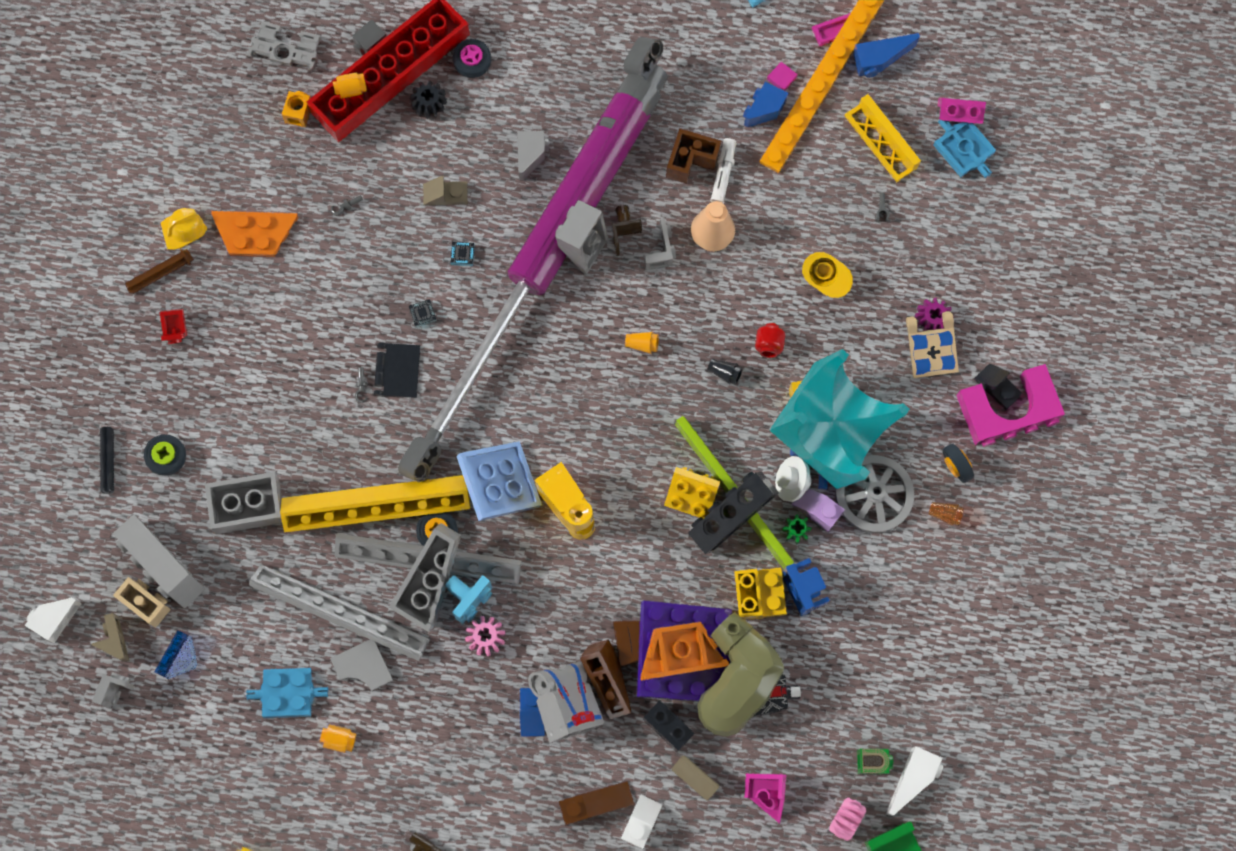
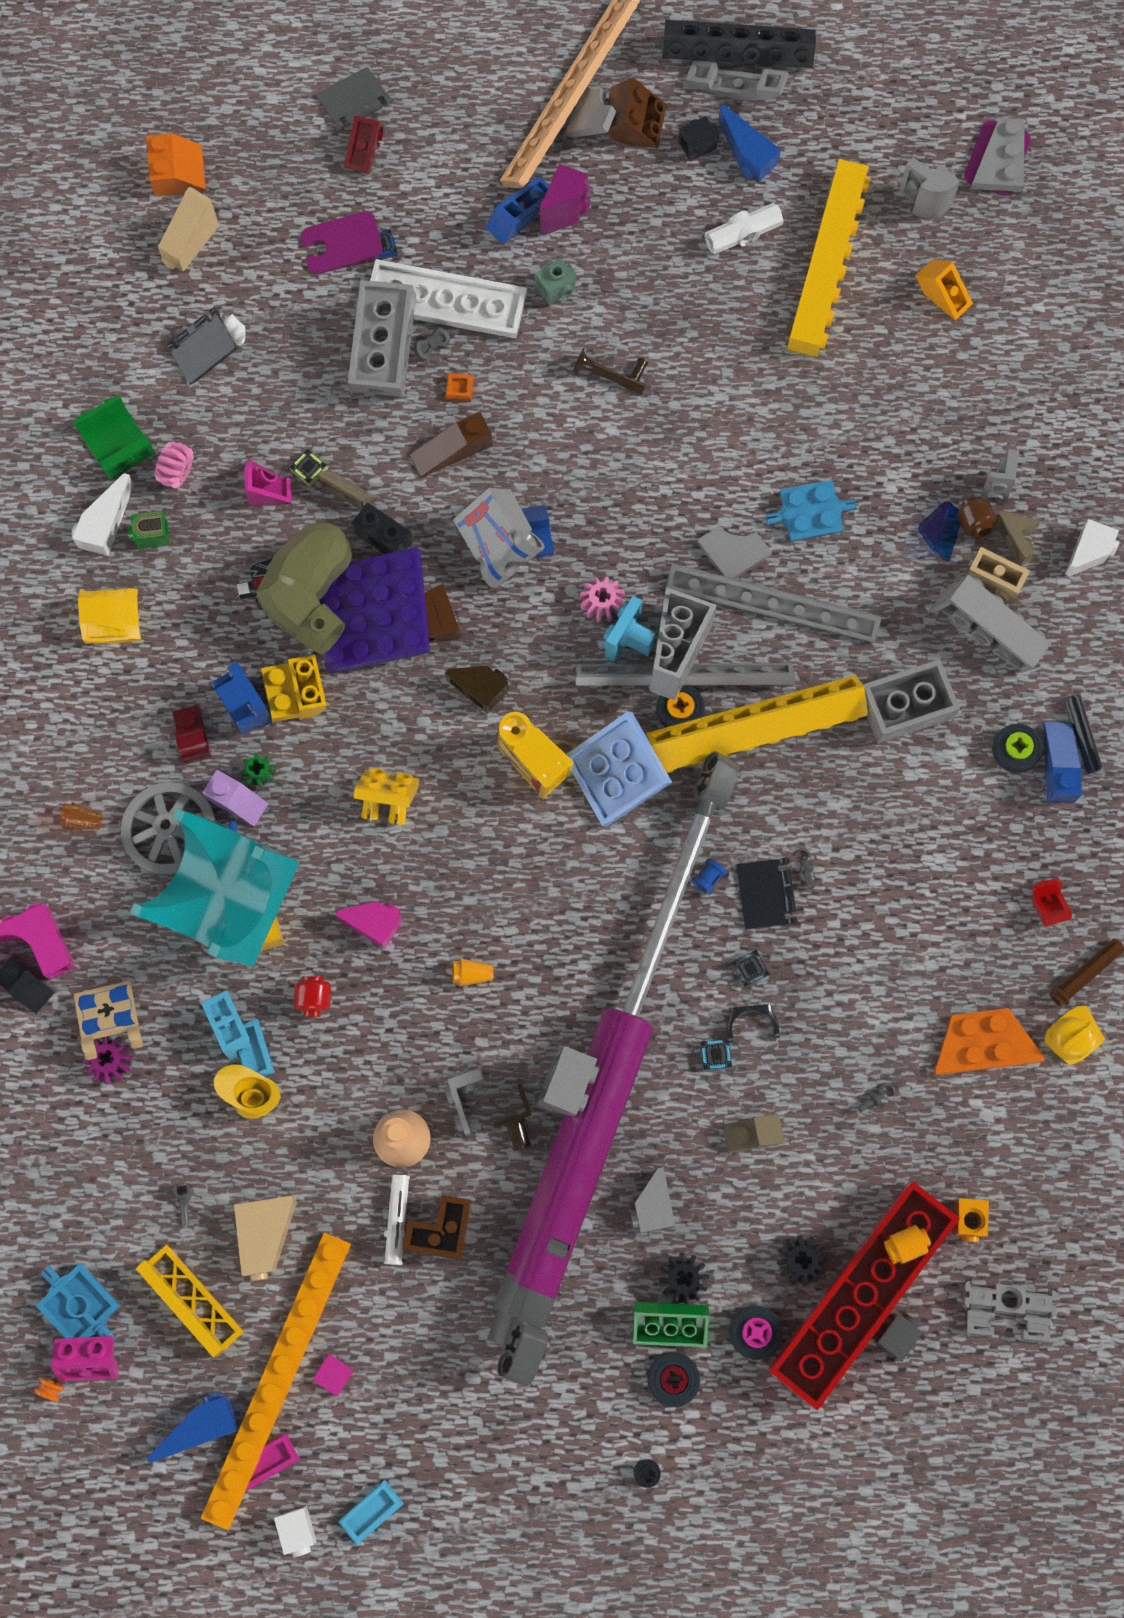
camera: 175 degrees right, 0 degrees up
(131, 437) = (1061, 763): none -> blue slope
(144, 661) = (976, 517): none -> reddish brown head
(338, 738) = (744, 471): light orange brick -> none
(435, 283) = (765, 1008): none -> black cap
(440, 388) = (709, 876): none -> blue bush
(511, 105) = (685, 1268): none -> black gear
(527, 38) = (664, 1392): none -> black bush
(533, 70) = (670, 1324): none -> green piece
(602, 575) = (479, 685): none -> dark brown slope
(607, 678) = (461, 577): reddish brown slope -> none
(641, 822) = (399, 433): white slope -> none
(680, 651) = (377, 598): orange wing -> none
(716, 391) = (373, 921): none -> dark pink slope
(727, 371) = (364, 951): black cone -> none
(727, 483) = (338, 802): lime tile -> none
(727, 804) = (308, 467): none -> tile
(763, 493) = (359, 741): black brick -> none
(767, 105) = (348, 1324): blue slope -> none
(793, 479) = (268, 823): white piece -> none
(820, 311) = (258, 1056): none -> medium azure tile
(825, 175) = (262, 1234): none -> tan slope
(840, 325) = (226, 1024): none -> medium azure hinge
(849, 568) = (191, 735): none -> dark red plate
(914, 687) = (109, 616): none -> yellow slope
(958, 463) = (68, 873): black wheel -> none
(988, 94) = (49, 1389): none -> orange bush

